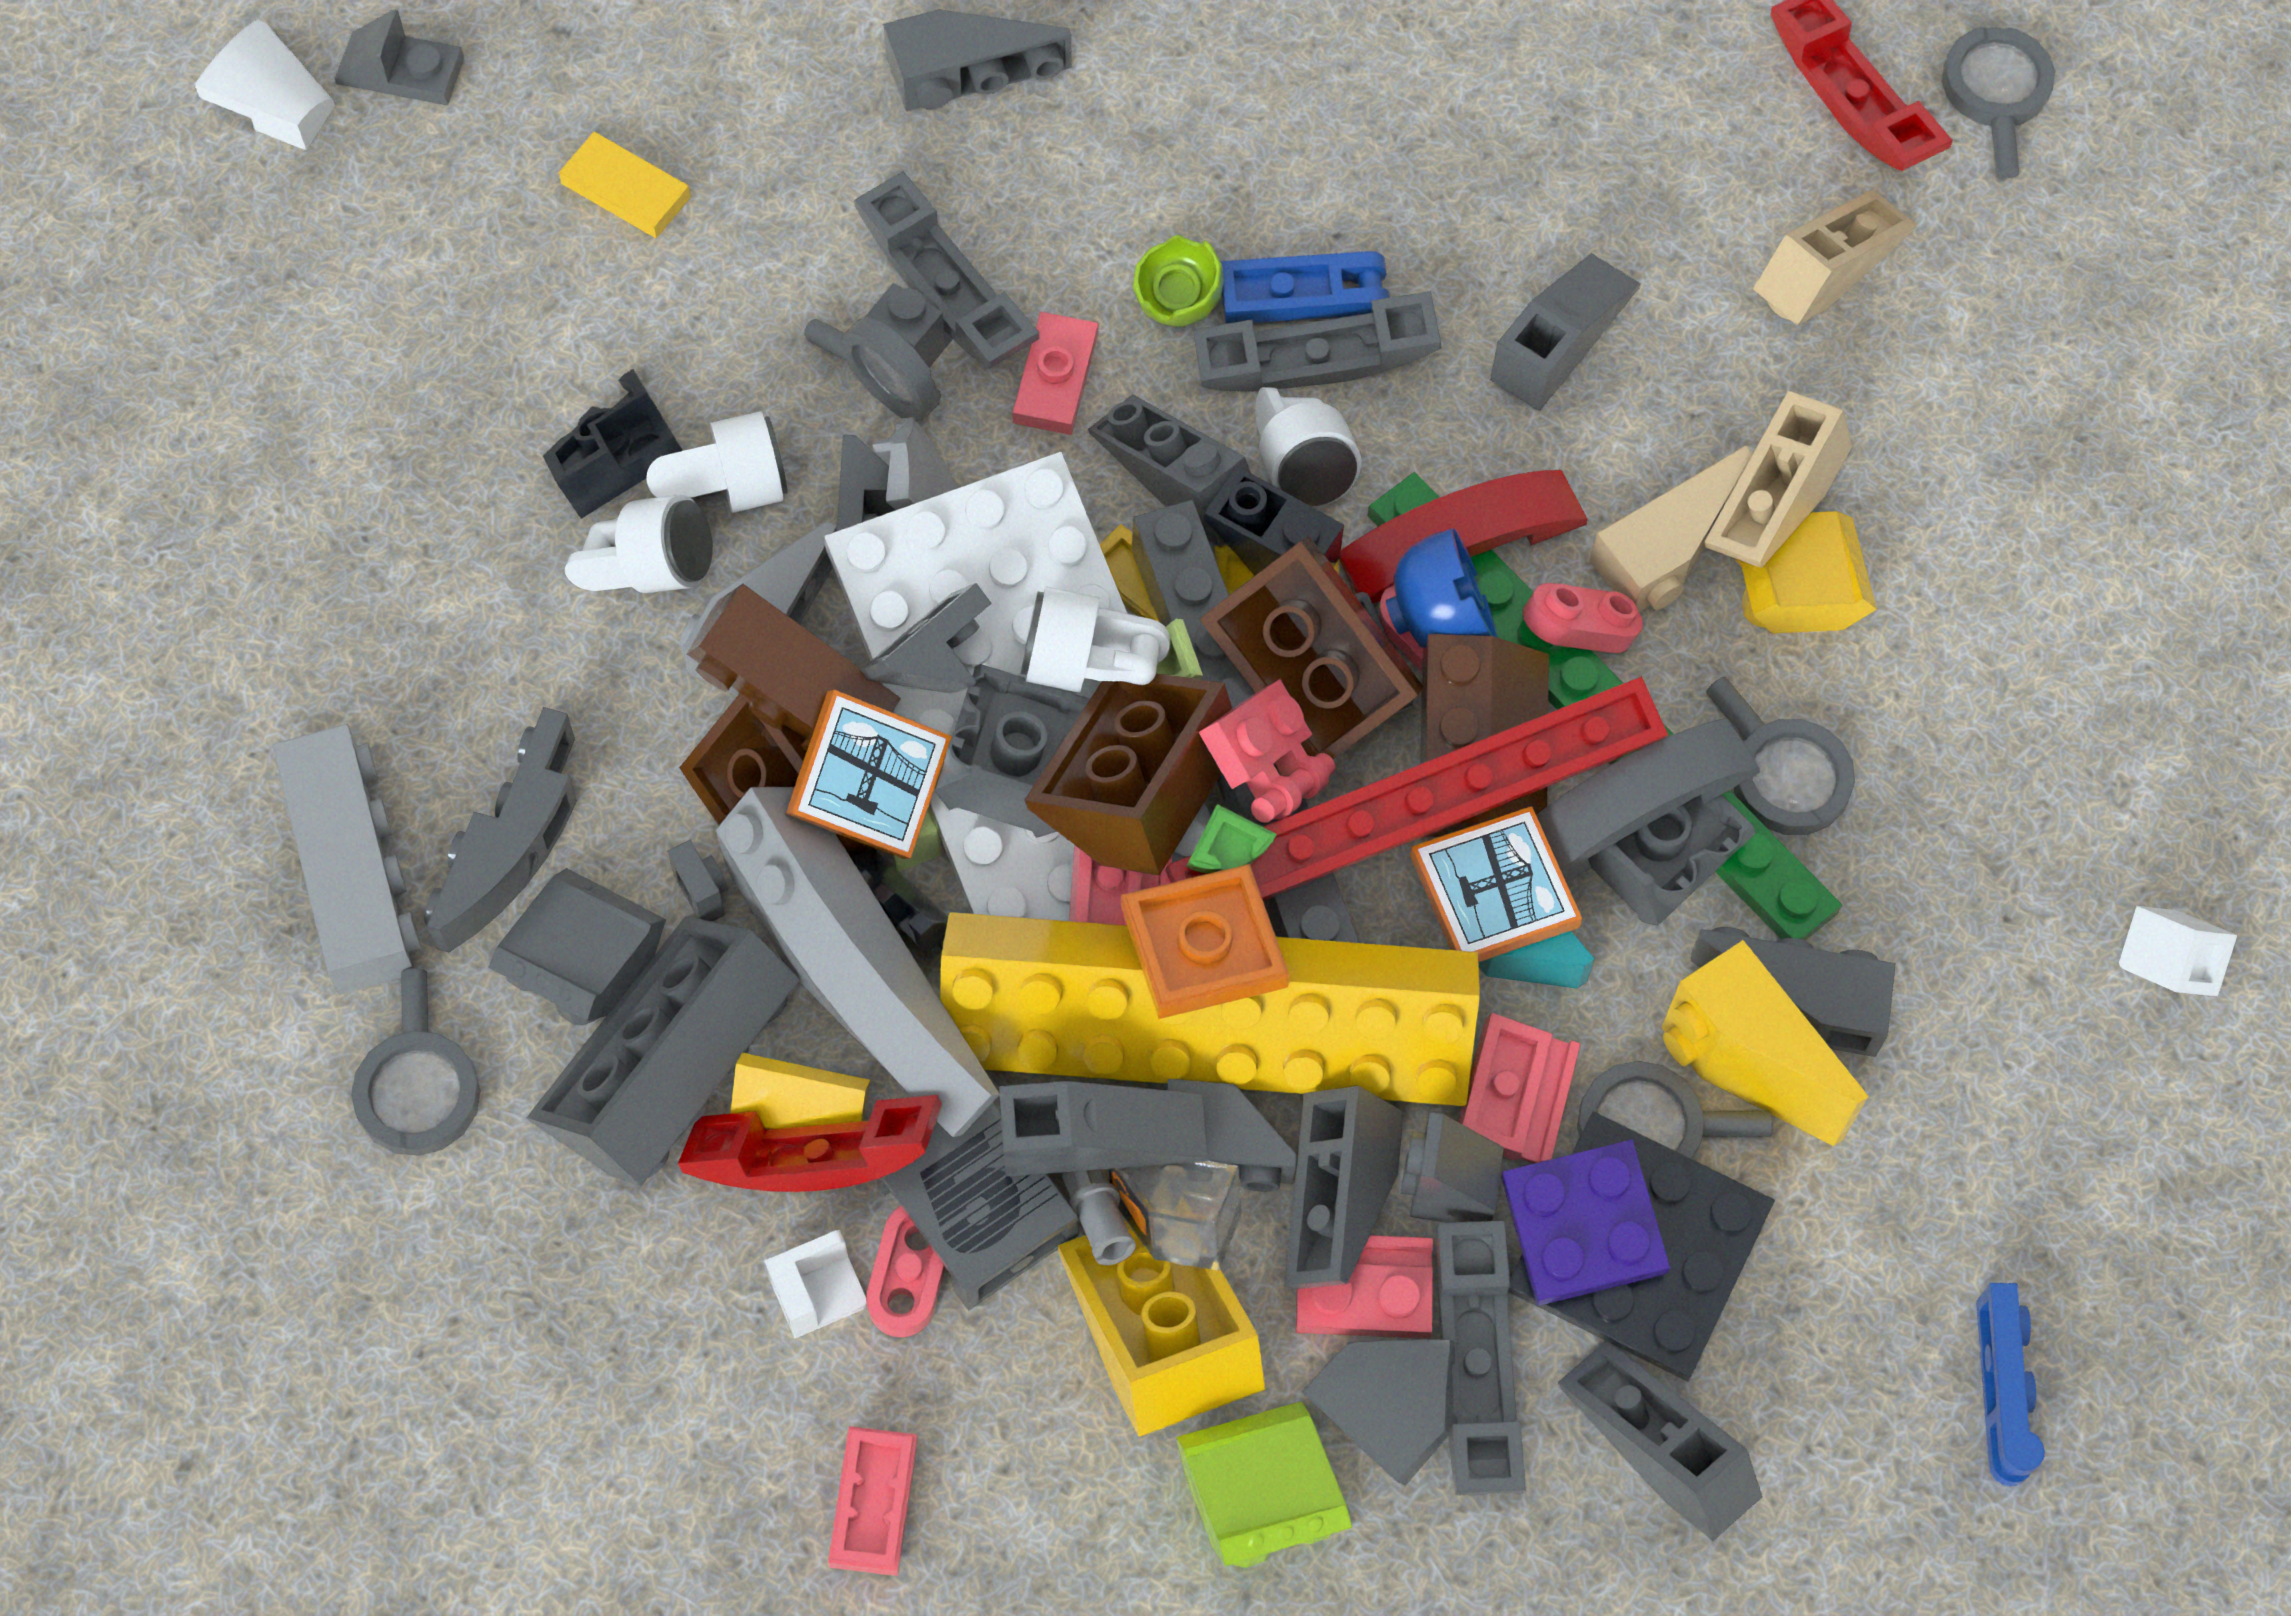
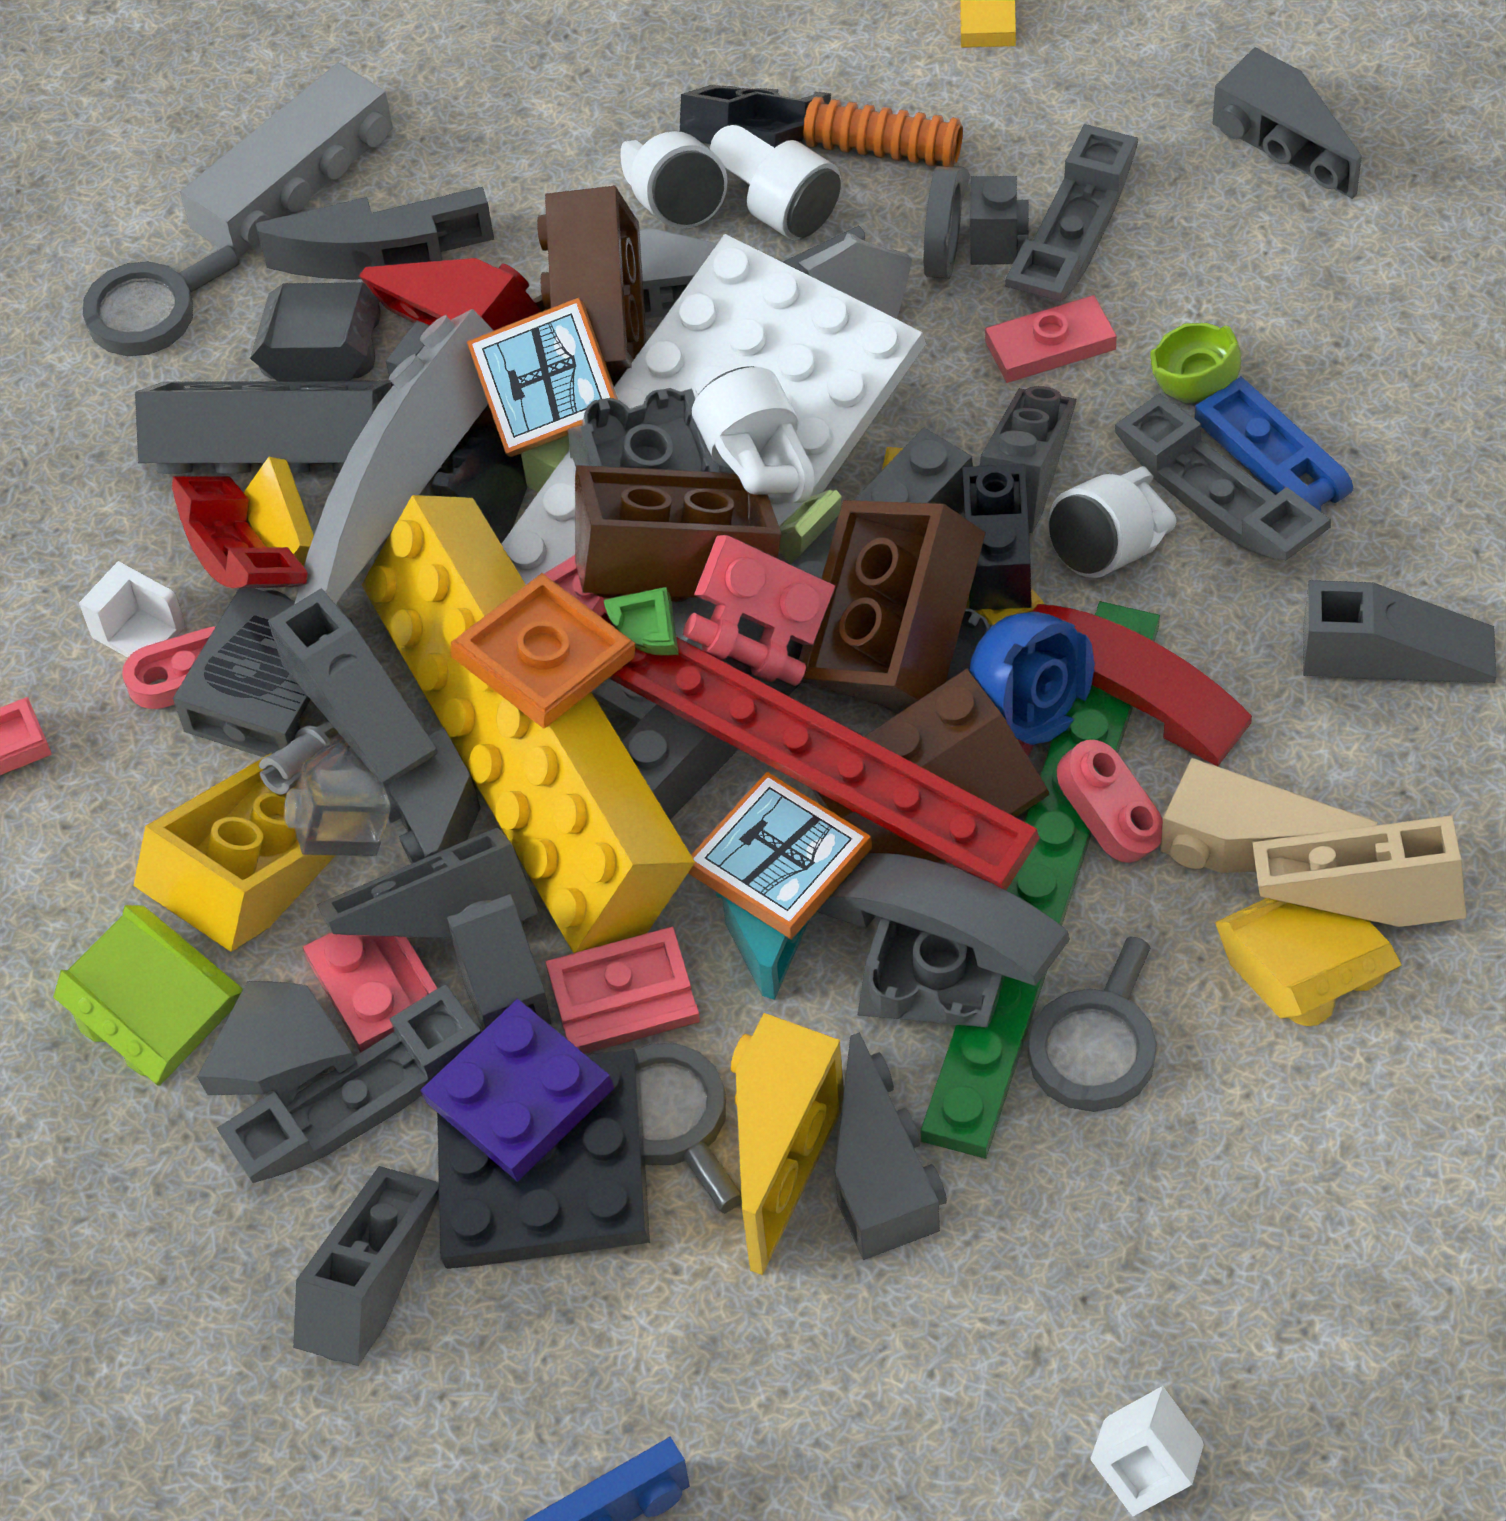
camera: 65 degrees right, 10 degrees down
(674, 802) = (450, 289): none -> red slope
(724, 355) = (883, 132): none -> orange piece
(925, 653) = (658, 332): dark grey slope -> none

